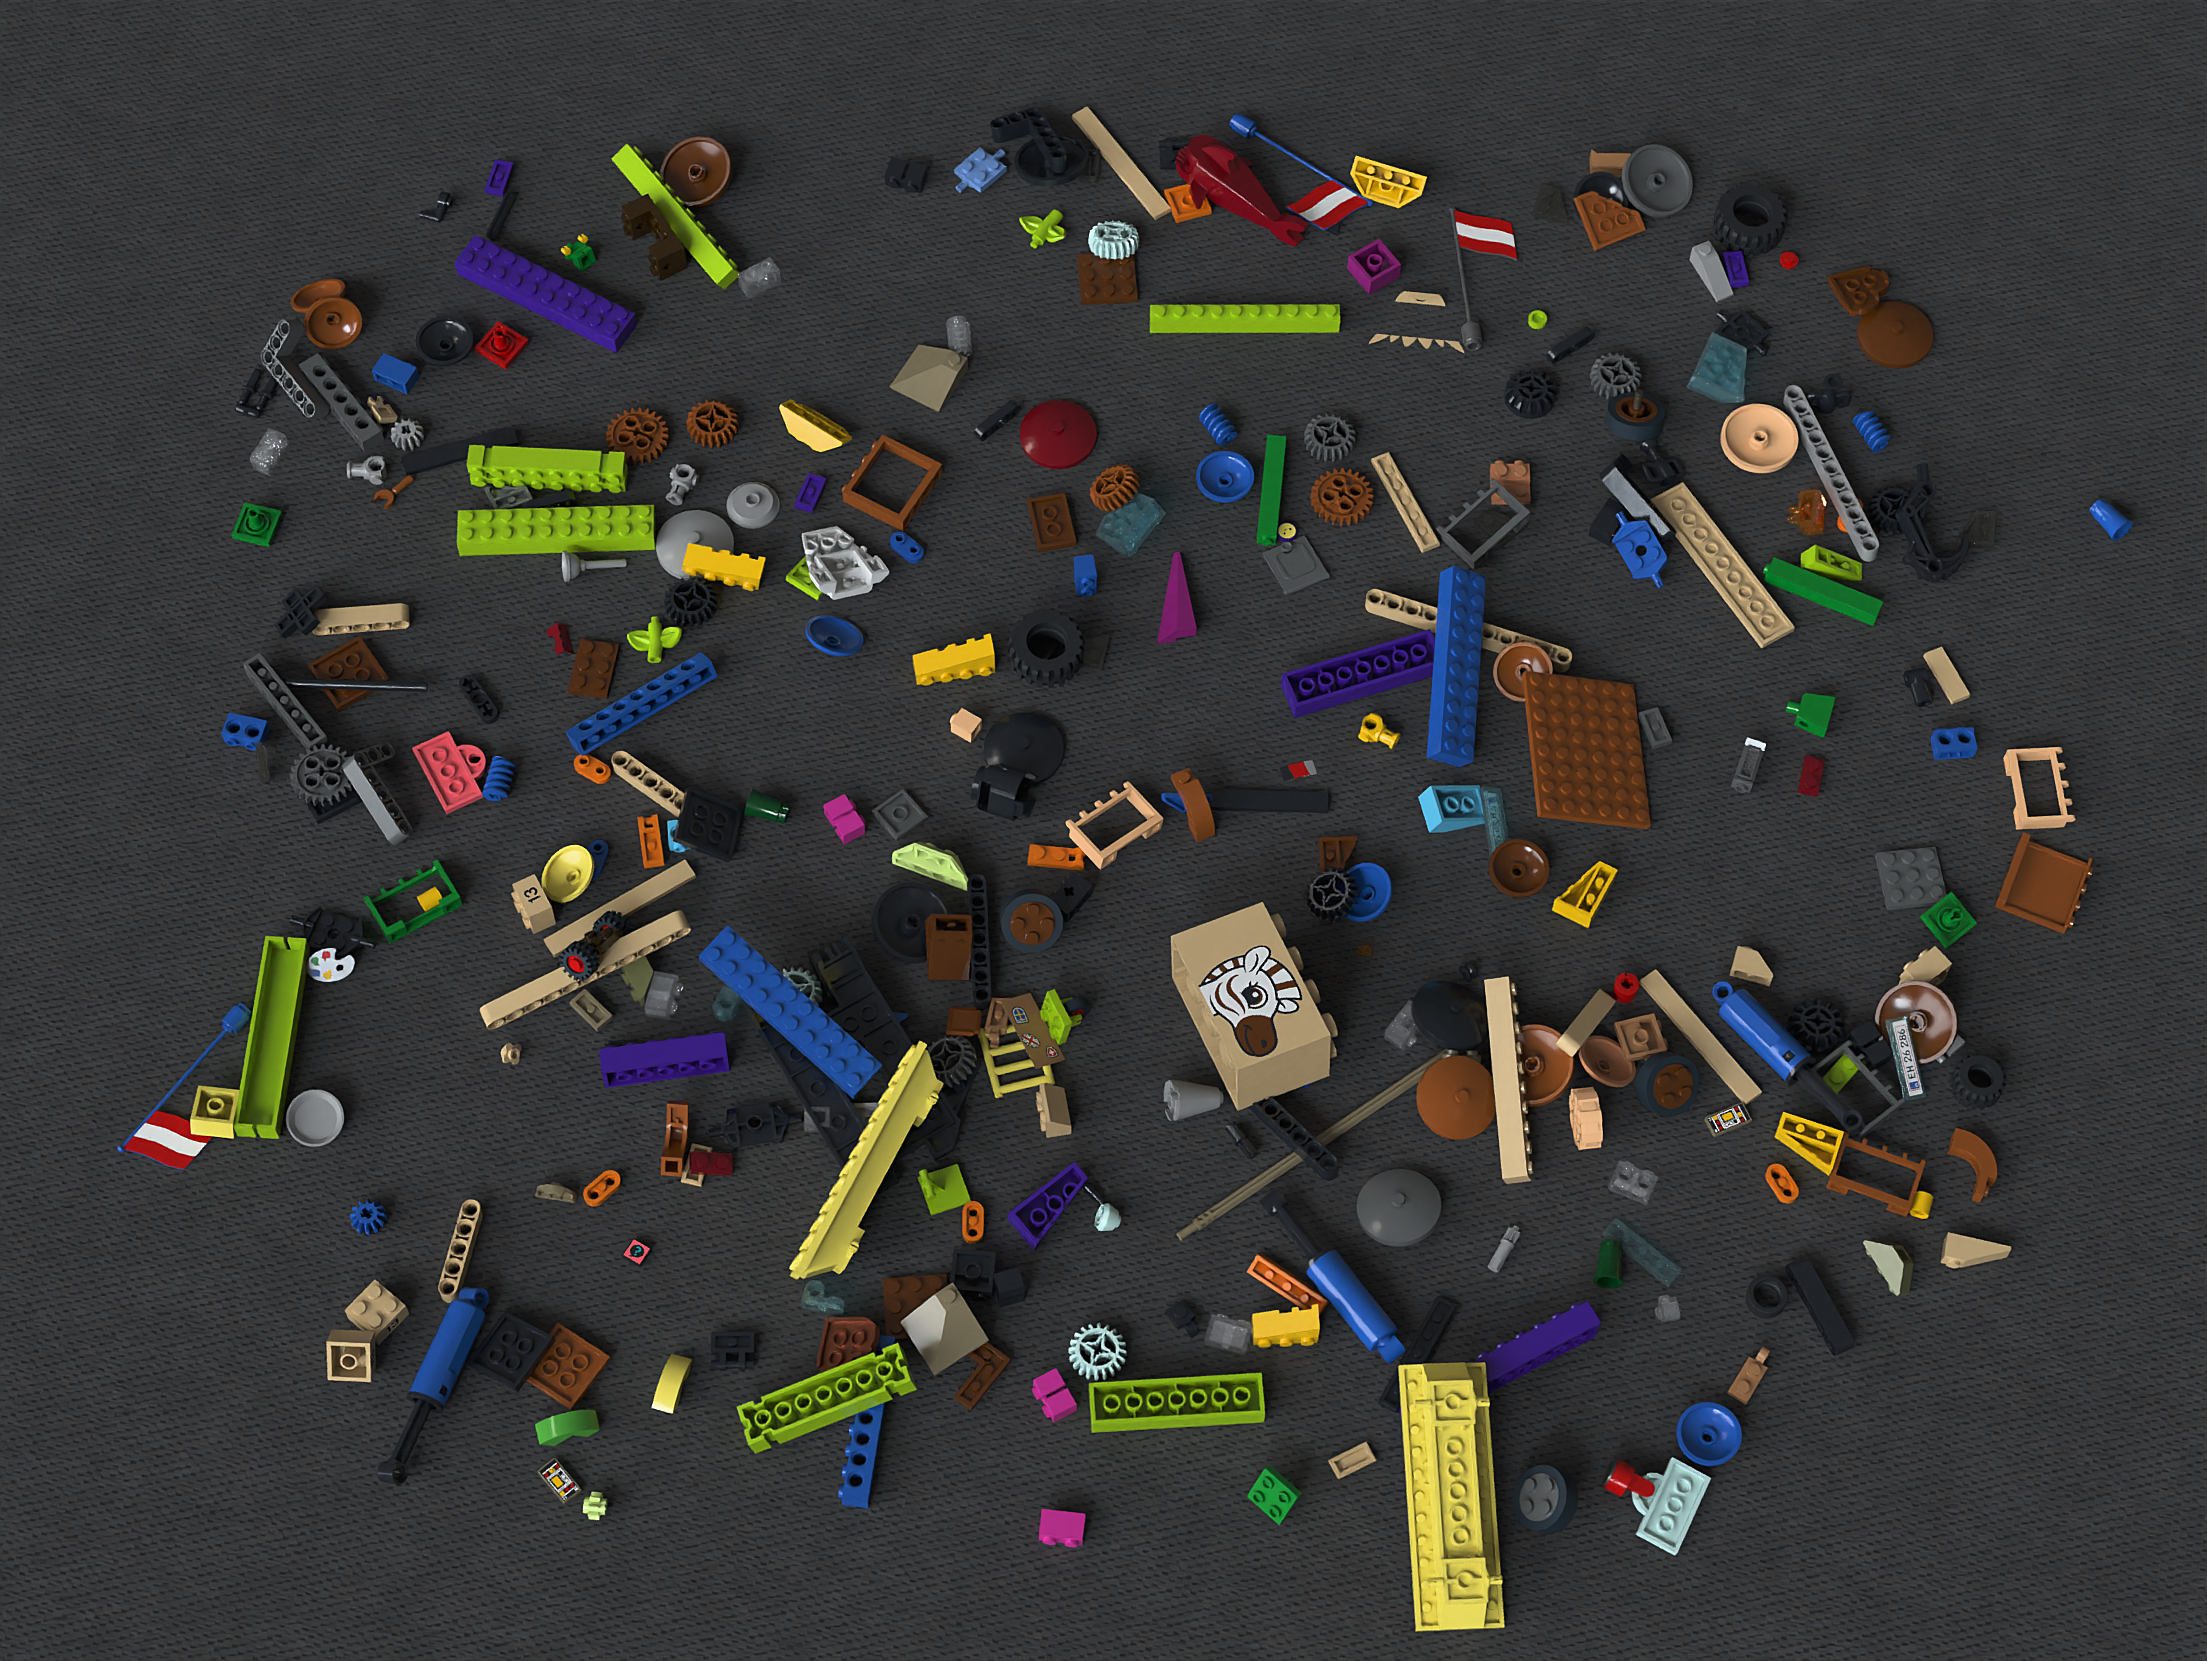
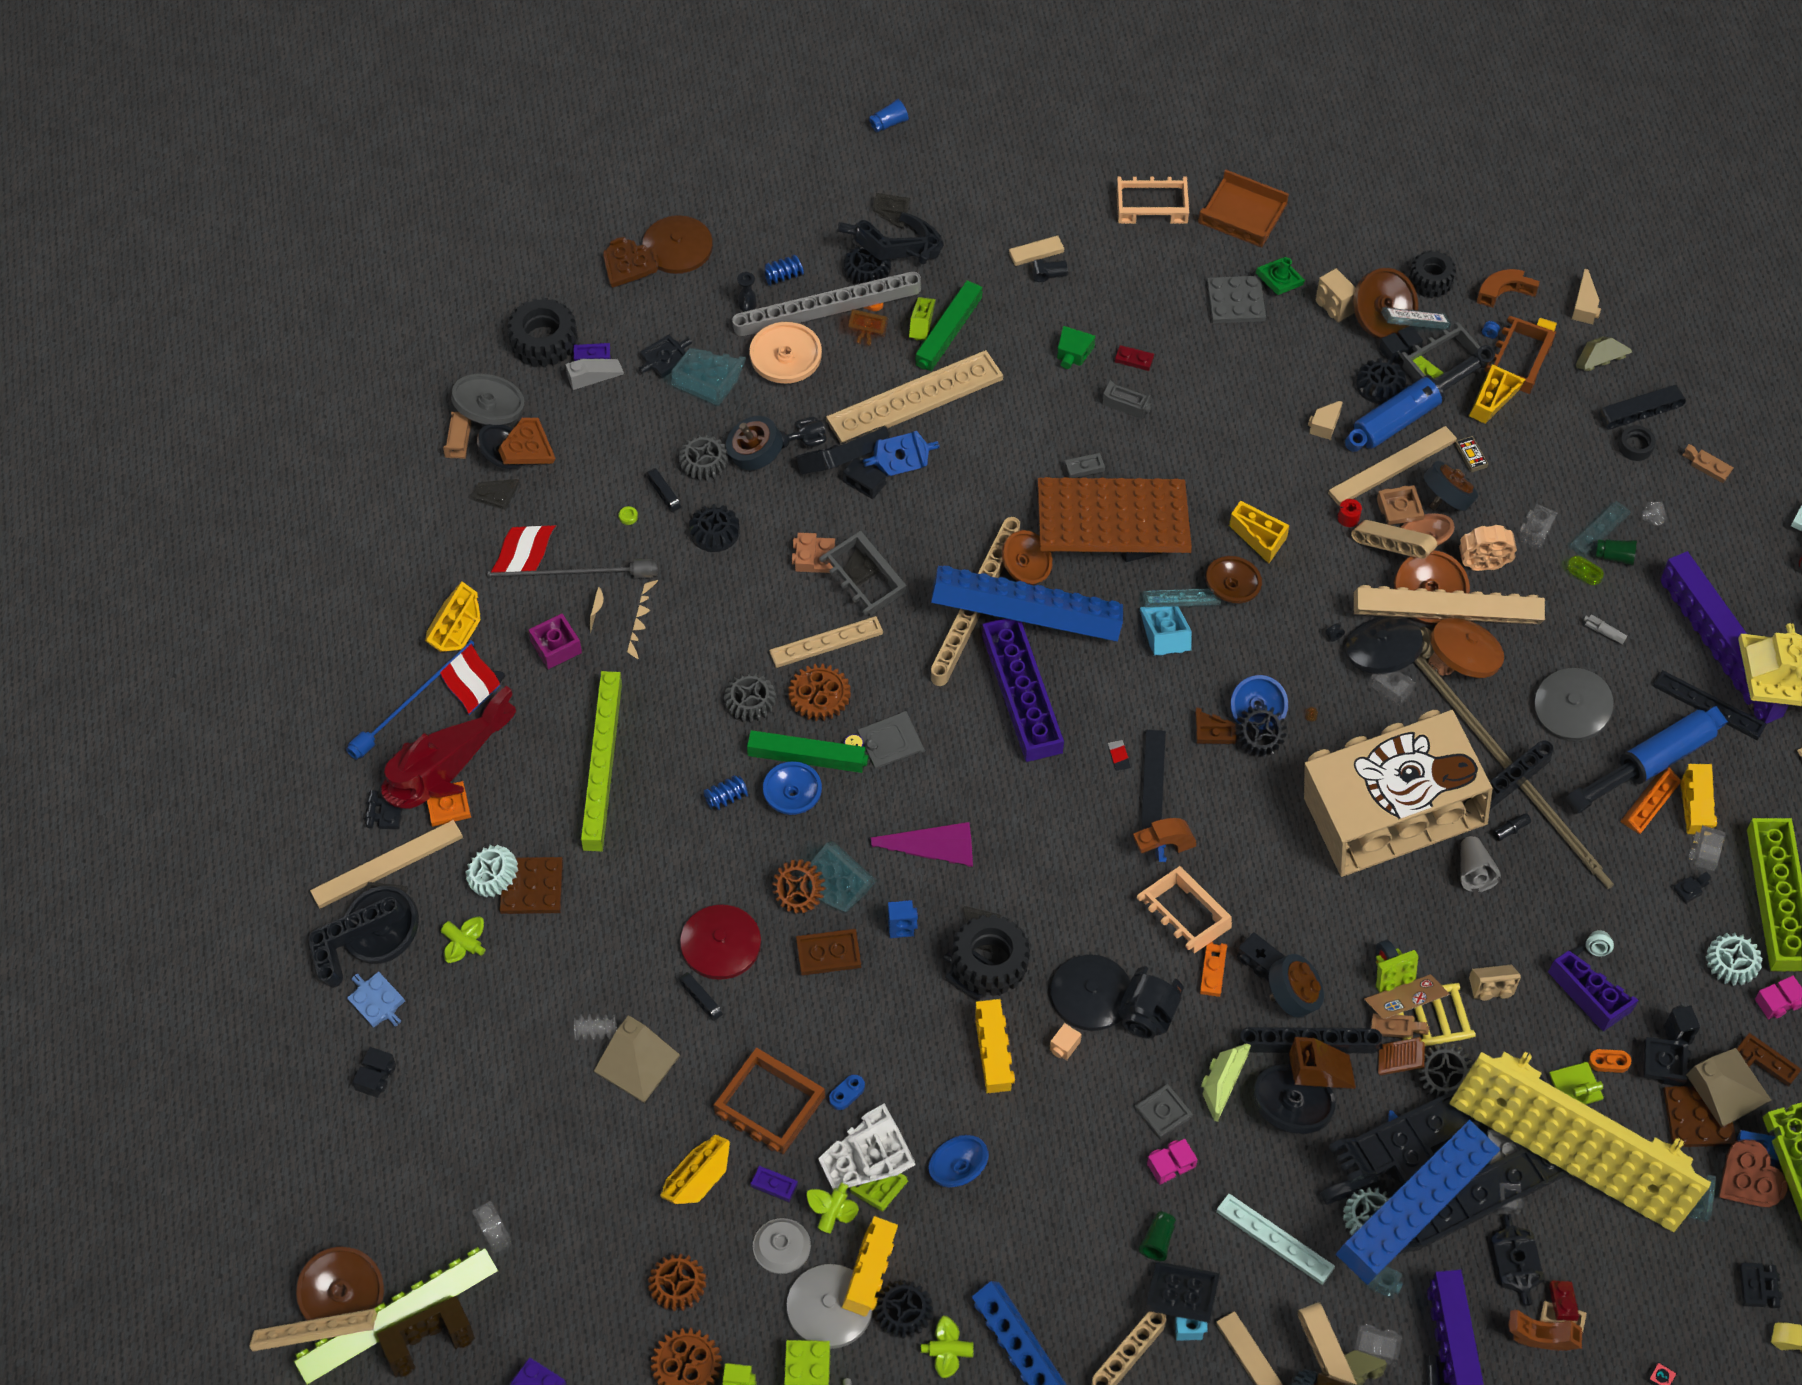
camera: 85 degrees left, 5 degrees down
(650, 841) = (1194, 1356): orange plate -> none
(657, 155) = (313, 1330): none -> tan tile
(681, 484) = (754, 1318): light grey connector -> none
(775, 902) = (1275, 1239): none -> light aqua plate
(784, 536) = (832, 1206): none -> lime plant
(1379, 733) = (1083, 681): yellow connector -> none
(1580, 1232) = (1585, 570): none -> clear neon green plate
(1711, 1421) = (1771, 486): blue dish -> none
(1782, 1184) = (1530, 422): orange plate -> none
(1789, 260) = (586, 312): red plate -> none
(1908, 1144) = (1490, 329): none -> blue bush
(1954, 747) = (1107, 252): blue brick -> none

